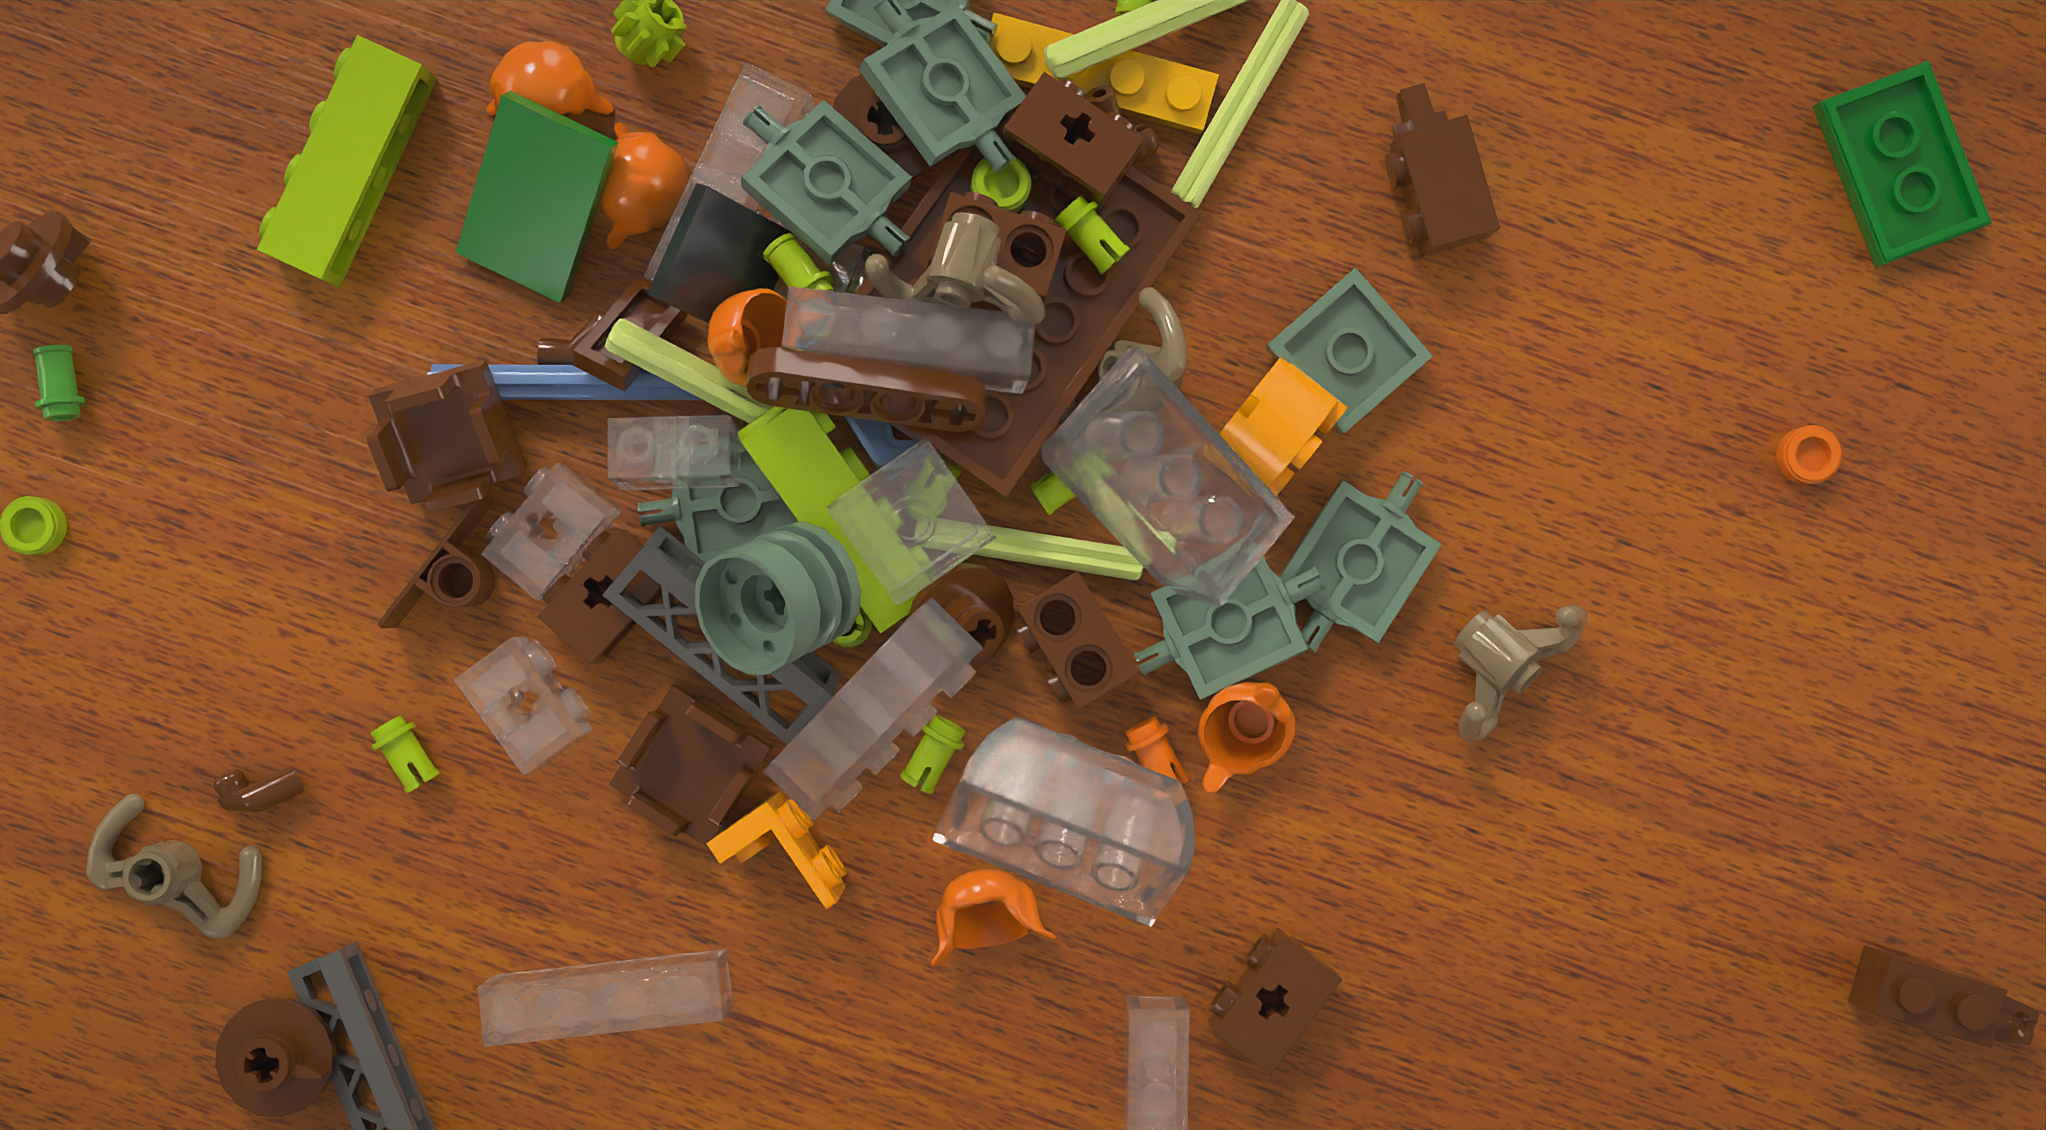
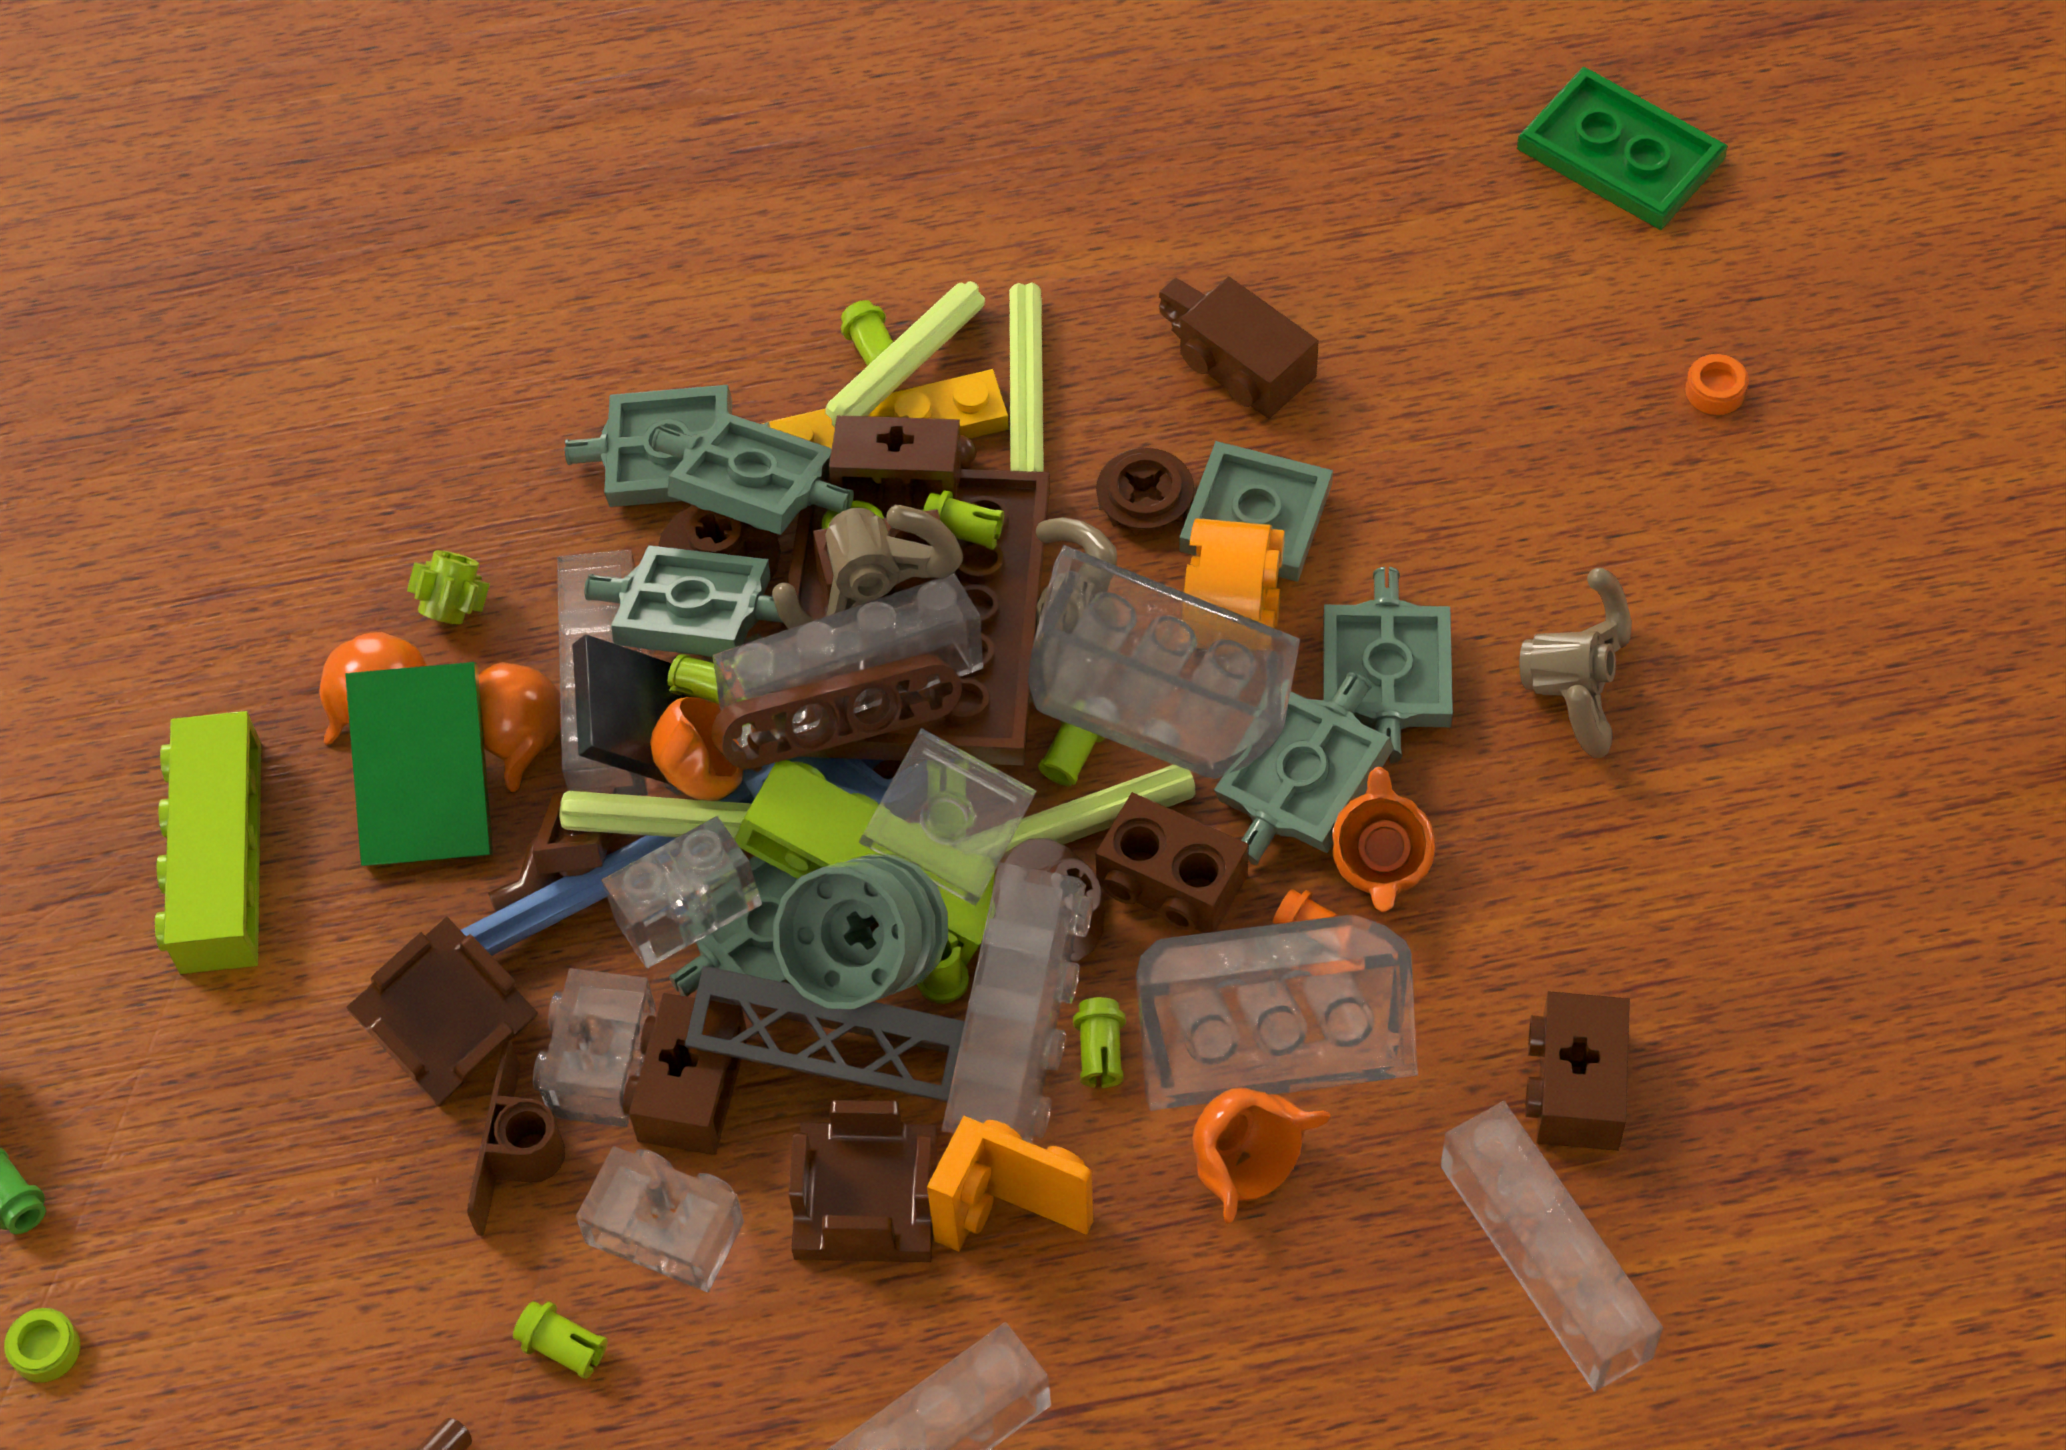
camera: 30 degrees left, 30 degrees down
(1284, 249) = (1142, 470): none -> reddish brown gear

